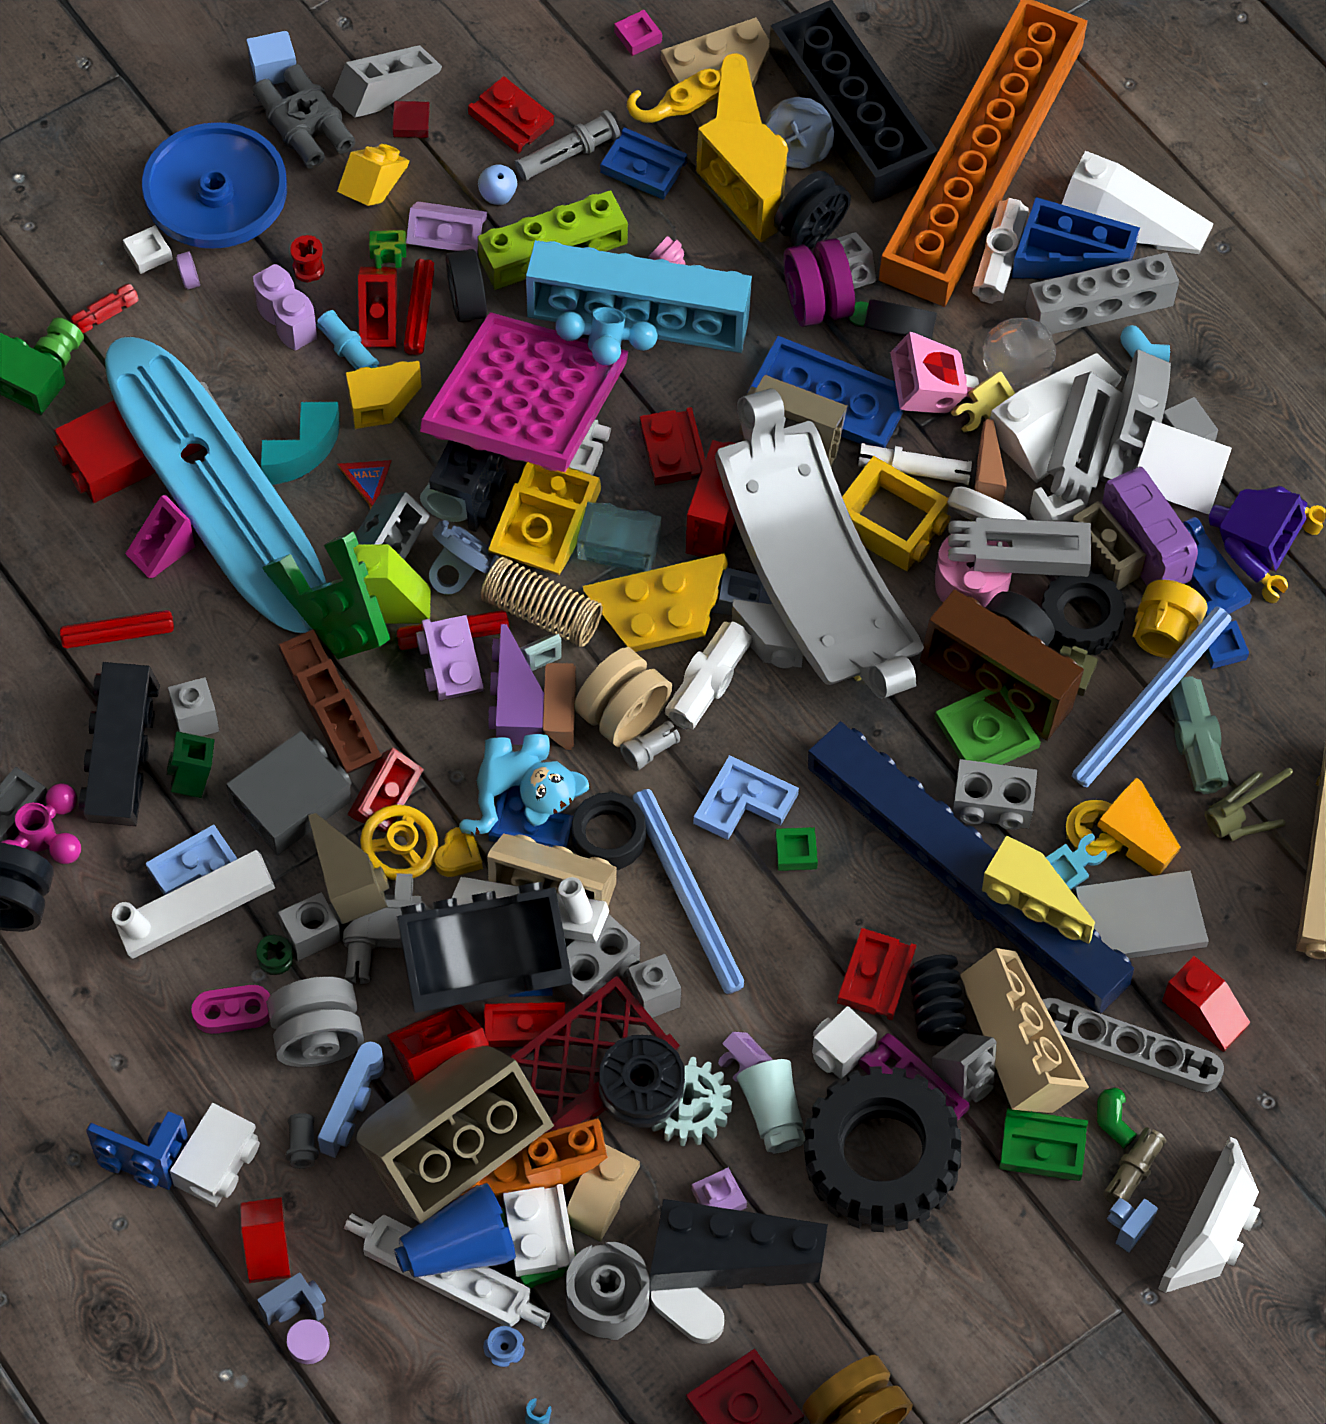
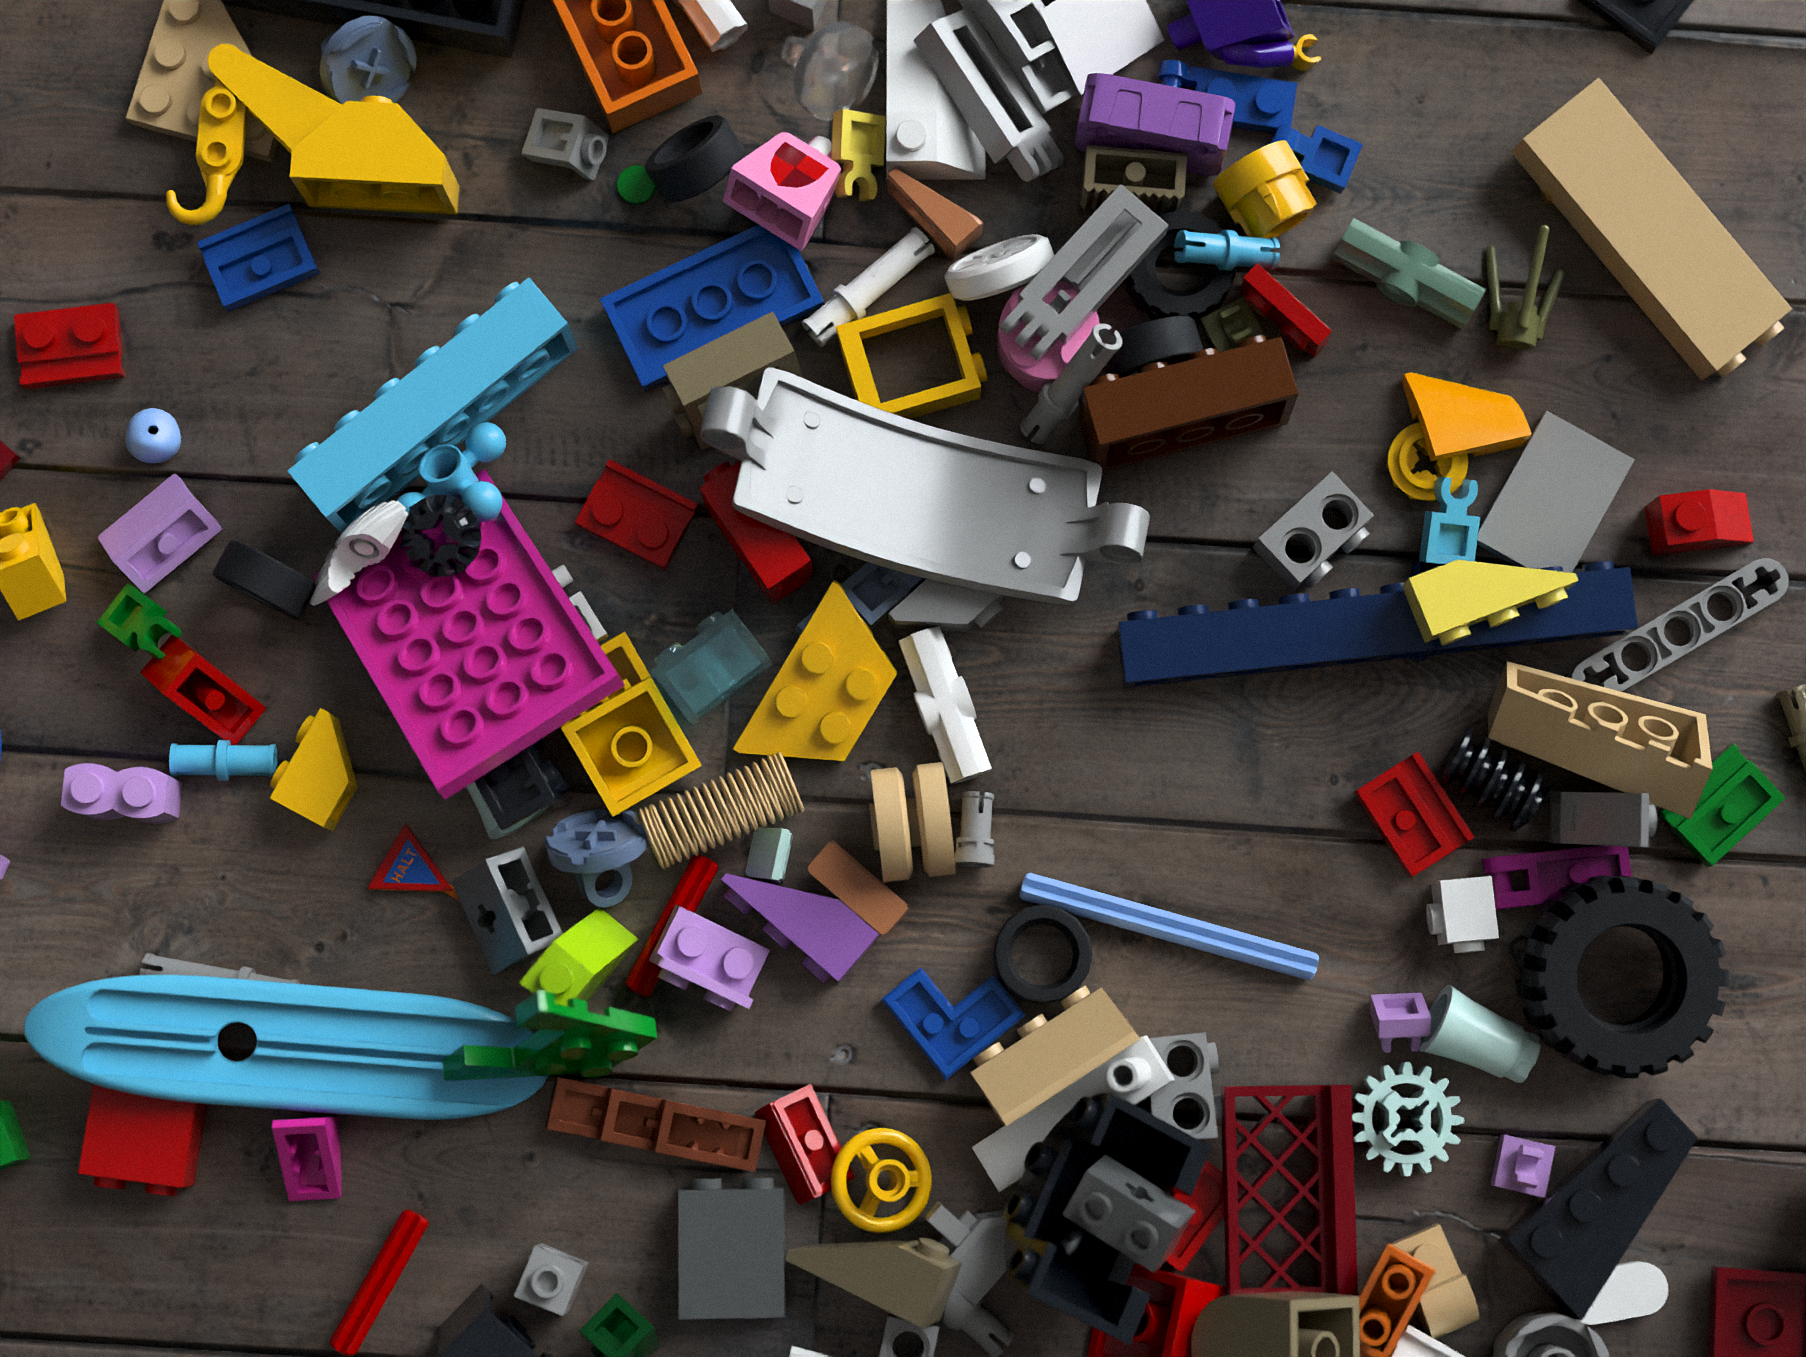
camera: 50 degrees left, 20 degrees up
(292, 459) = (315, 884): teal brick -> none
(312, 262) = (62, 713): red bush -> none
(419, 307) = (238, 644): red axle -> none
(457, 855) = (939, 1126): yellow tile -> none
(493, 962) = (1129, 1213): none -> dark grey brick
(525, 312) = (359, 545): none -> white hair
(543, 785) = (946, 985): medium azure animal -> none
(581, 139) = (170, 298): light grey pin -> none
(583, 343) = (458, 523): none -> black gear
(586, 223) = (277, 424): lime brick -> none
(638, 32) = (78, 121): dark pink tile -> none
(646, 1057) = (1404, 1168): black wheel -> none
(655, 985) = (1258, 1052): light grey brick -> none
(669, 251) = (398, 328): bright pink plate -> none
(741, 789) = (1099, 784): light blue plate -> none
(796, 849) = (1213, 780): green plate -> none
(812, 209) = (481, 135): black wheel -> none
(819, 282) = (579, 204): magenta wheel -> none
(966, 583) = (1061, 397): none -> light grey pin
(984, 732) = (1231, 479): bright green tile -> none
(1053, 507) = (1044, 196): white panel -> none
(1106, 691) = (1296, 321): none -> red plate
(1110, 1116) = (1738, 713): green arm -> none
(1112, 618) = (1226, 250): none -> medium azure pin
(1151, 696) = (1340, 284): light blue axle -> none

